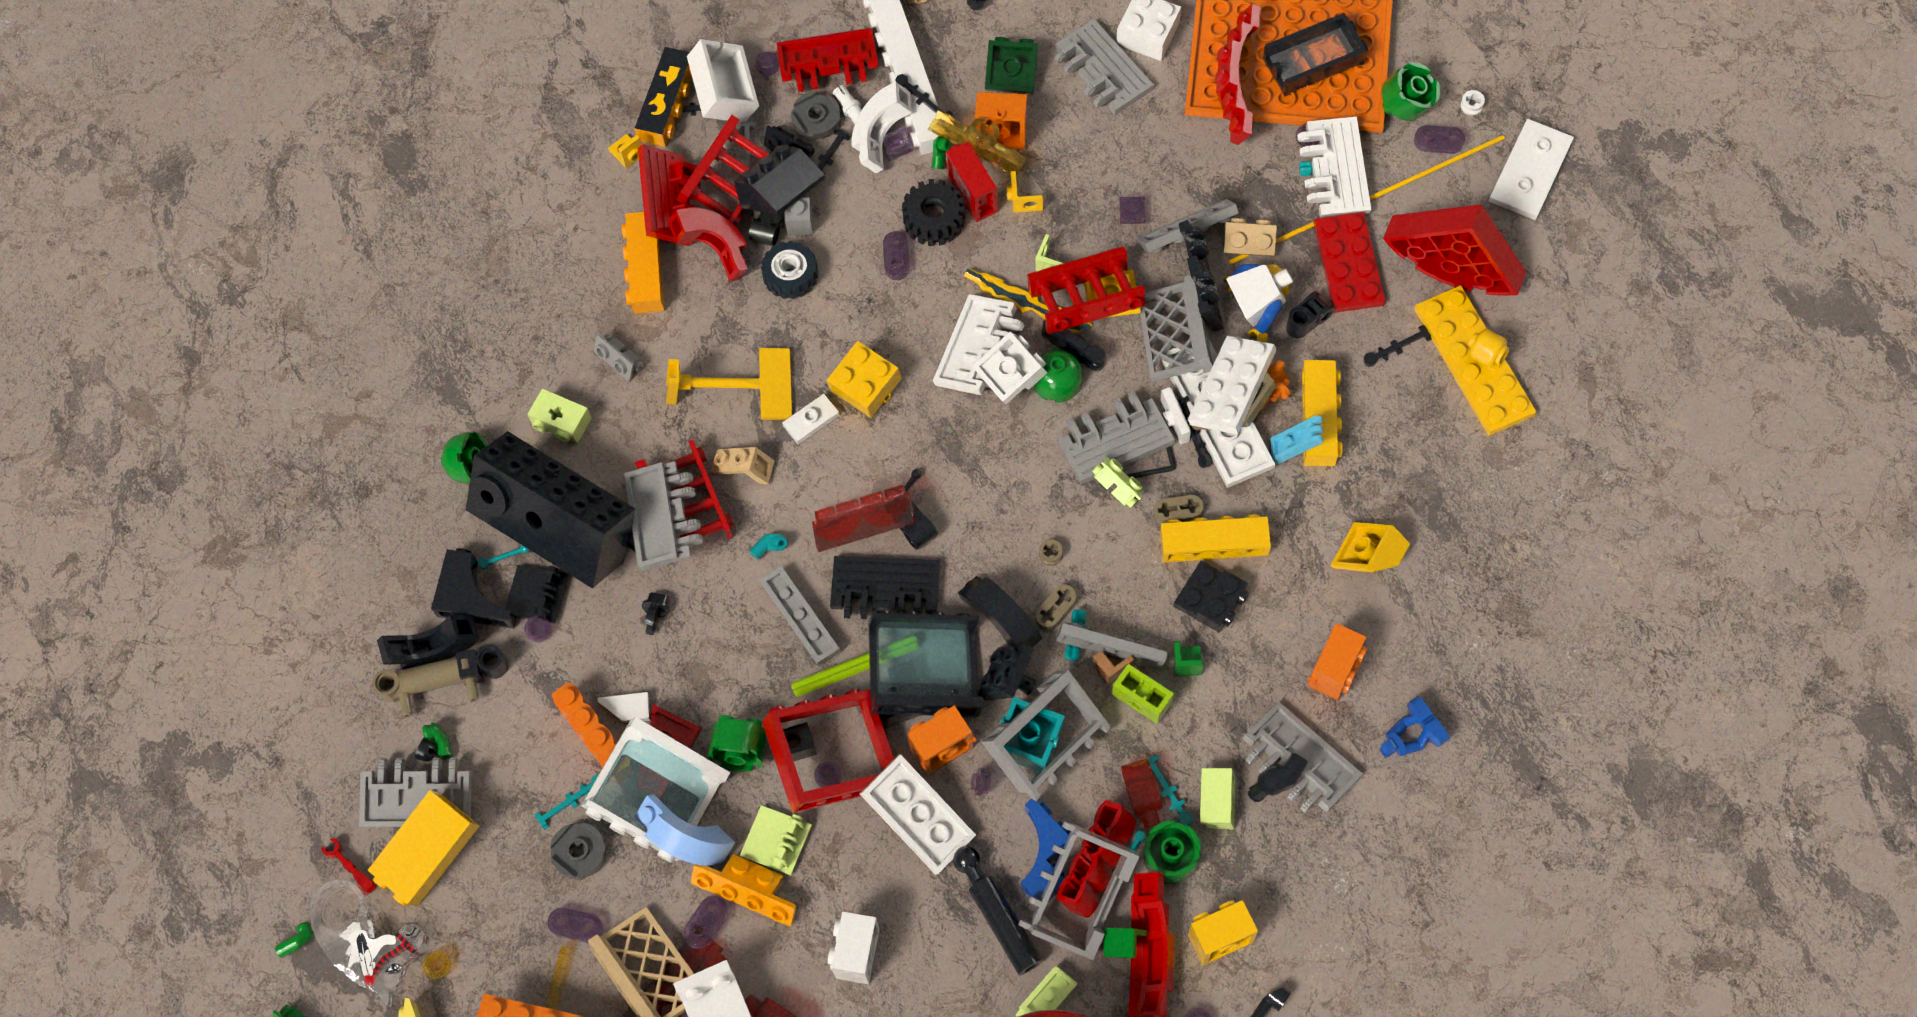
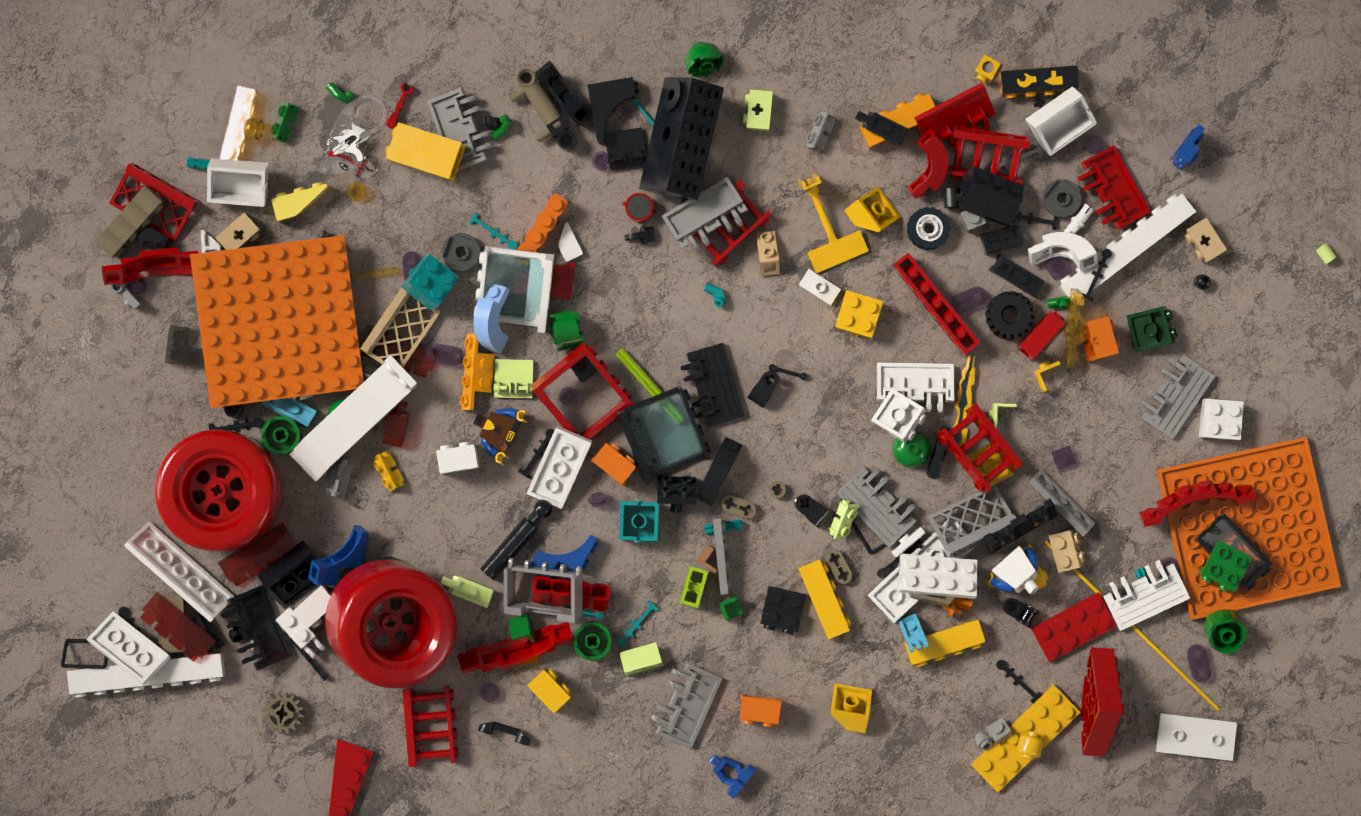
camera: 65 degrees right, 20 degrees up
(598, 901) = (430, 282): none -> teal brick
(617, 601) = (639, 207): none -> pearl dark grey piece
(641, 274) = (882, 127): none -> black hinge
(741, 326) = (872, 211): none -> yellow slope
(778, 136) = (1031, 179): black hinge -> none
(799, 616) = (671, 335): light grey plate -> none
(838, 194) = (1001, 239): none -> black hinge
(838, 879) = (499, 430): none -> torso
(858, 522) = (750, 350): clear red windscreen -> none
(869, 818) = (549, 433): none -> black piece
(886, 287) = (936, 304): none -> red brick
(888, 191) = (1017, 276): none -> black plate
(1053, 685) = (627, 505): light grey hinge -> none
(1095, 514) = (813, 512): none -> black piece
(1142, 791) = (627, 608): clear red piece -> none
(1278, 778) = (664, 695): black arm -> none
(1332, 64) = (1225, 567): none -> green bracket
(1456, 386) = (998, 731): none -> light grey plate
(1478, 106) = (1242, 674): white bush -> none

